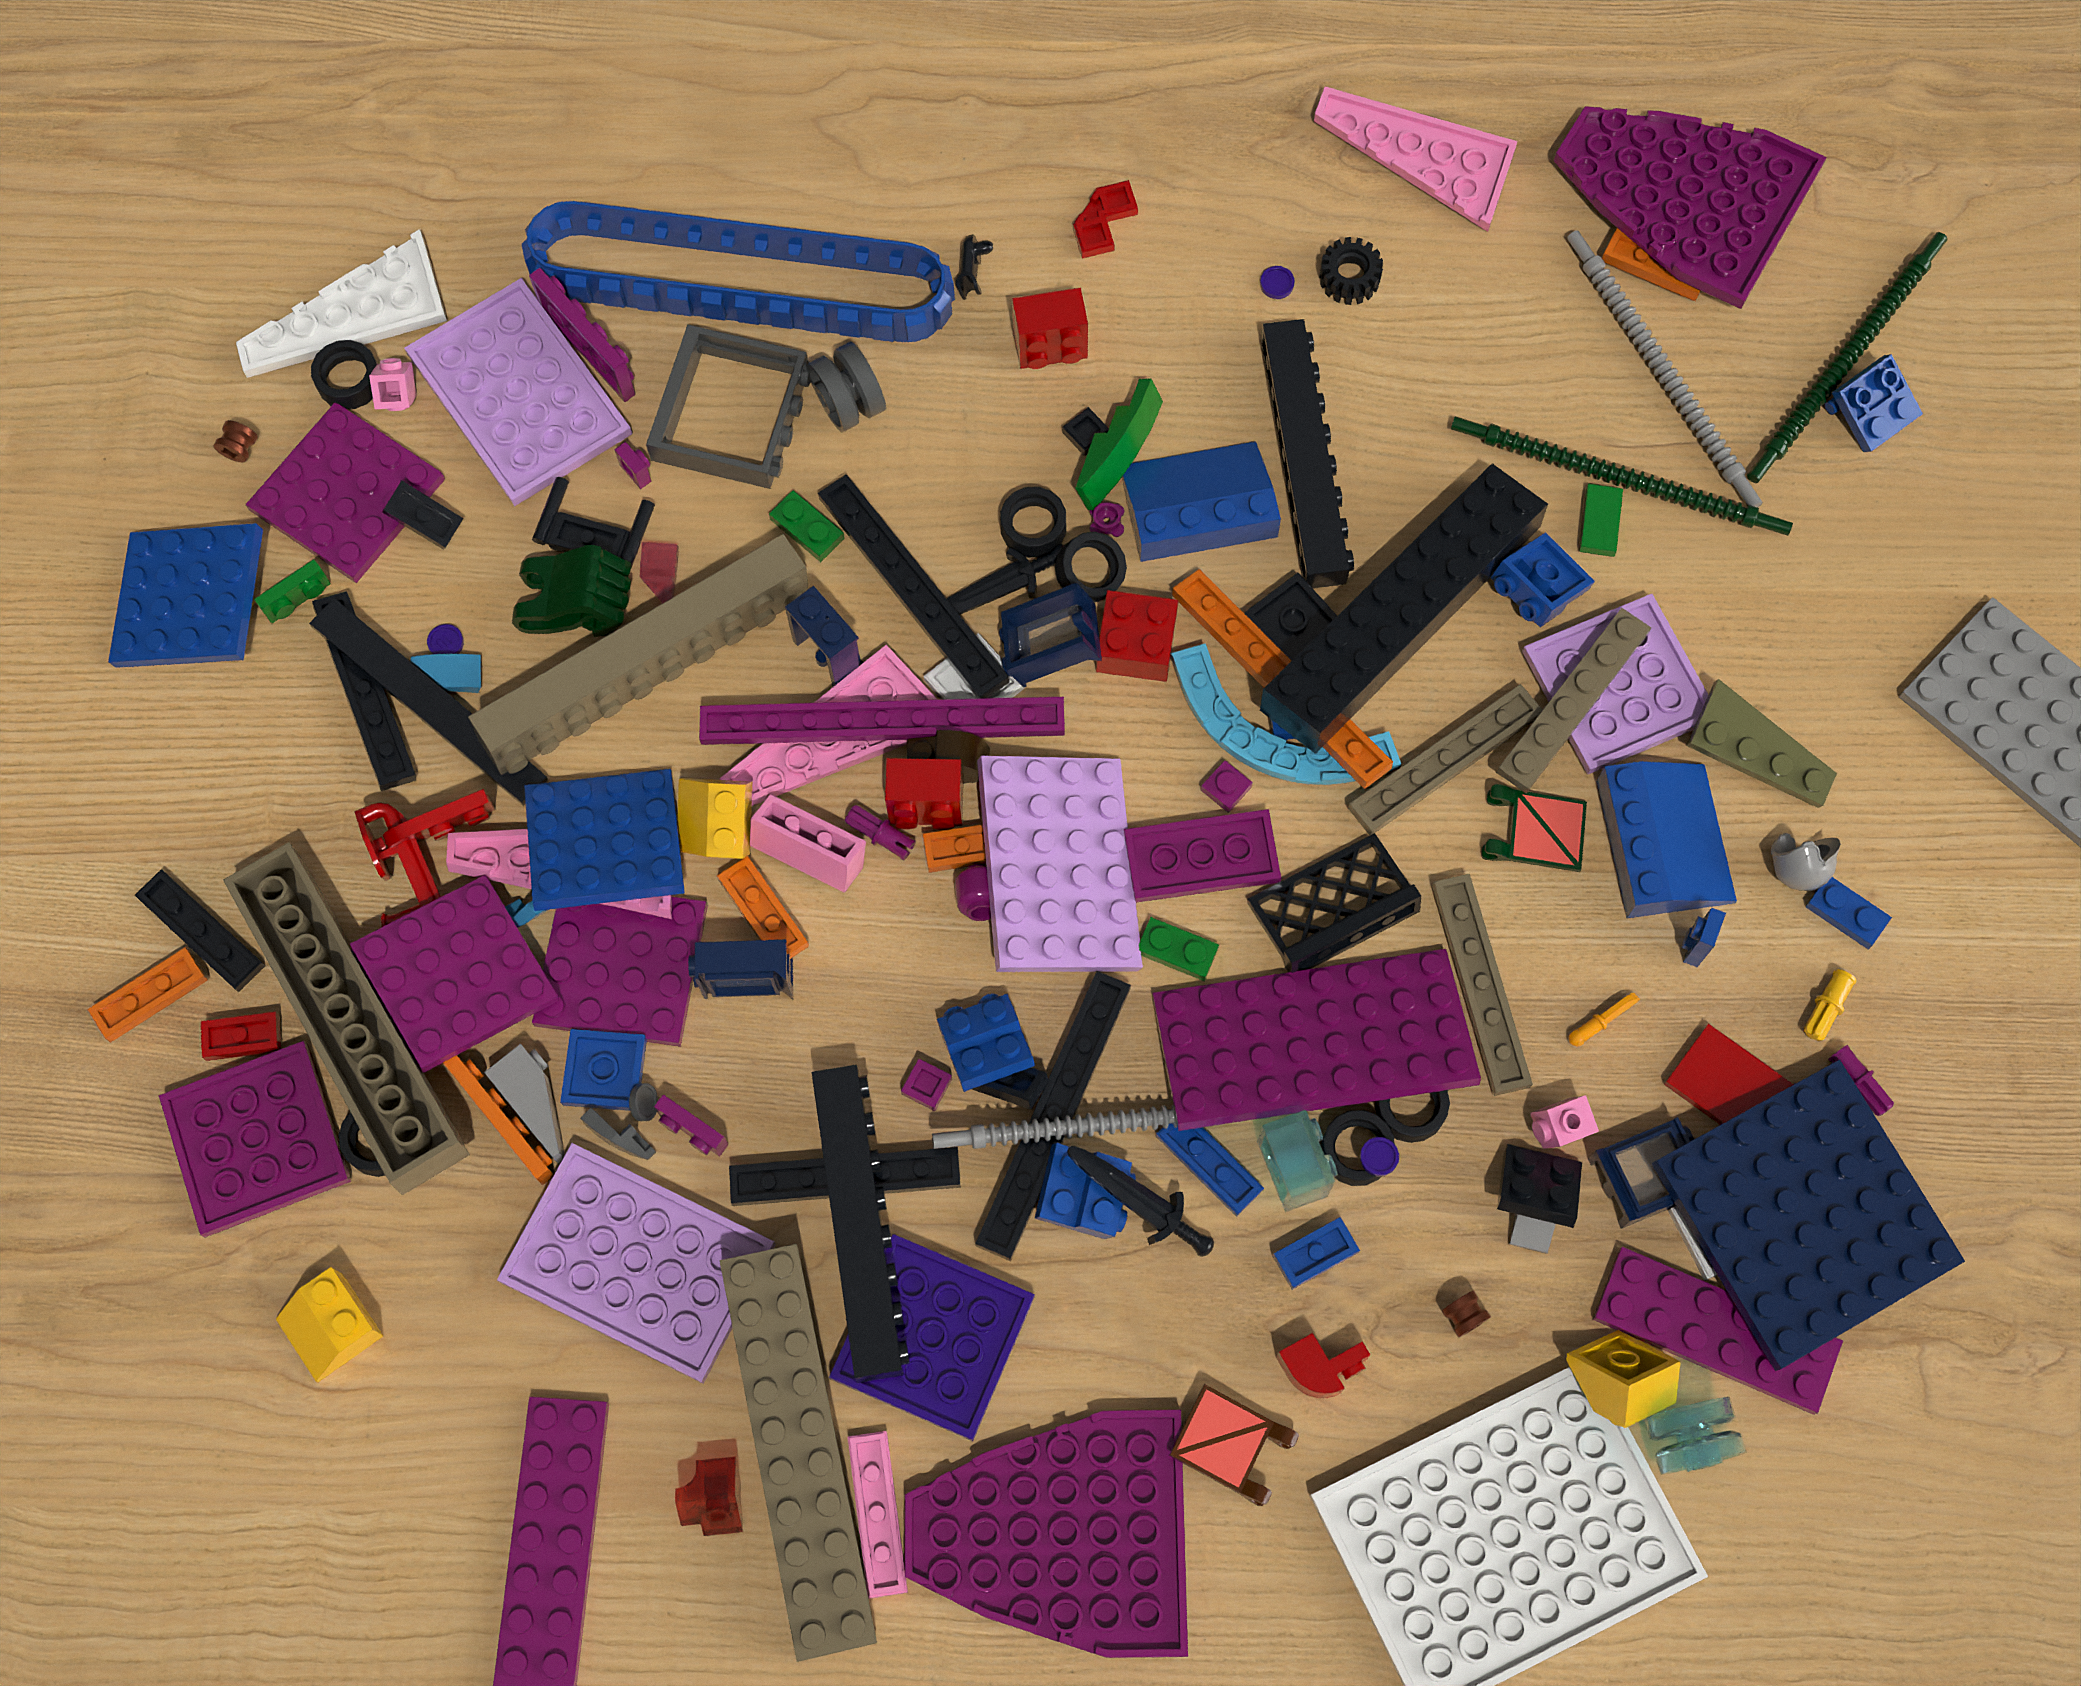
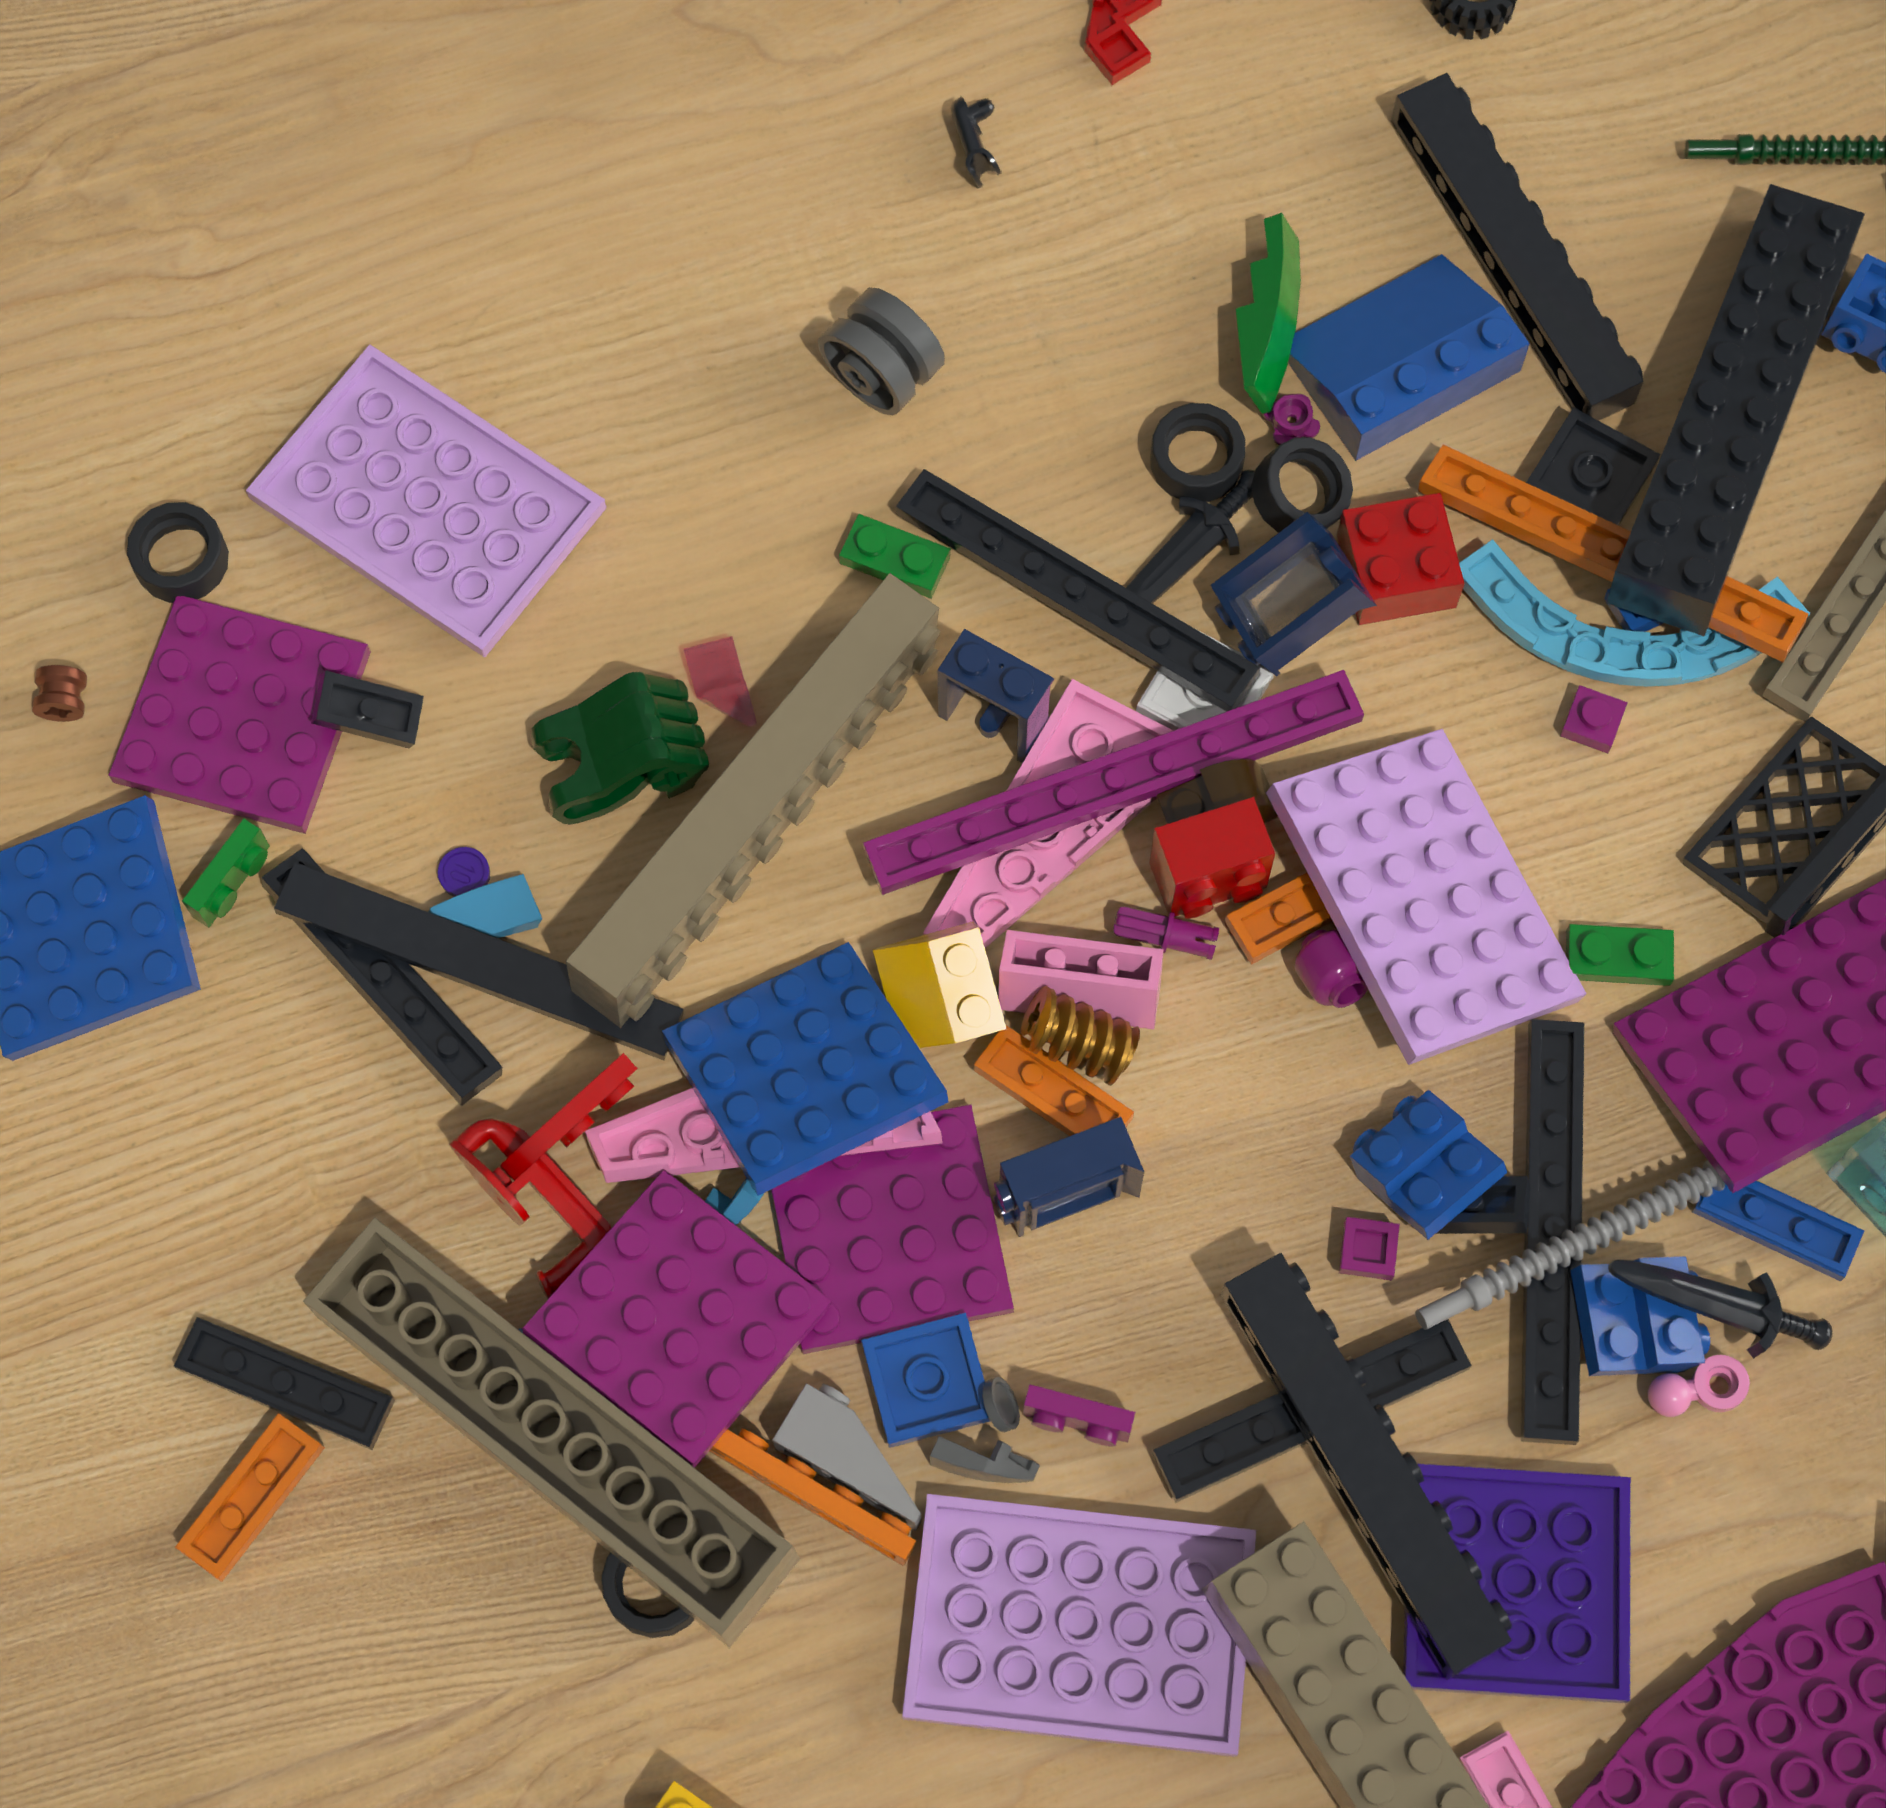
camera: 20 degrees left, 0 degrees up
(240, 1036) = (405, 1509): red plate -> none
(254, 1139) = (482, 1644): magenta plate -> none
(362, 306) = (163, 450): white wing -> none
(393, 385) = (253, 545): bright pink brick -> none
(569, 532) = (586, 668): black plate -> none
(586, 337) = (496, 396): magenta plate -> none
(634, 464) = (629, 548): magenta plate -> none
(739, 349) = (727, 347): dark grey window -> none
(746, 239) = (660, 198): blue piece -> none
(790, 880) = (1080, 1033): none -> pearl gold piece
(1050, 328) = (1120, 188): red brick -> none
(1082, 430) = (1214, 311): black tile -> none
(1087, 1251) = (1672, 1394): none -> bright pink plate
(1202, 855) = (1603, 820): magenta plate -> none
(1277, 282) = (1381, 37): dark purple piece -> none

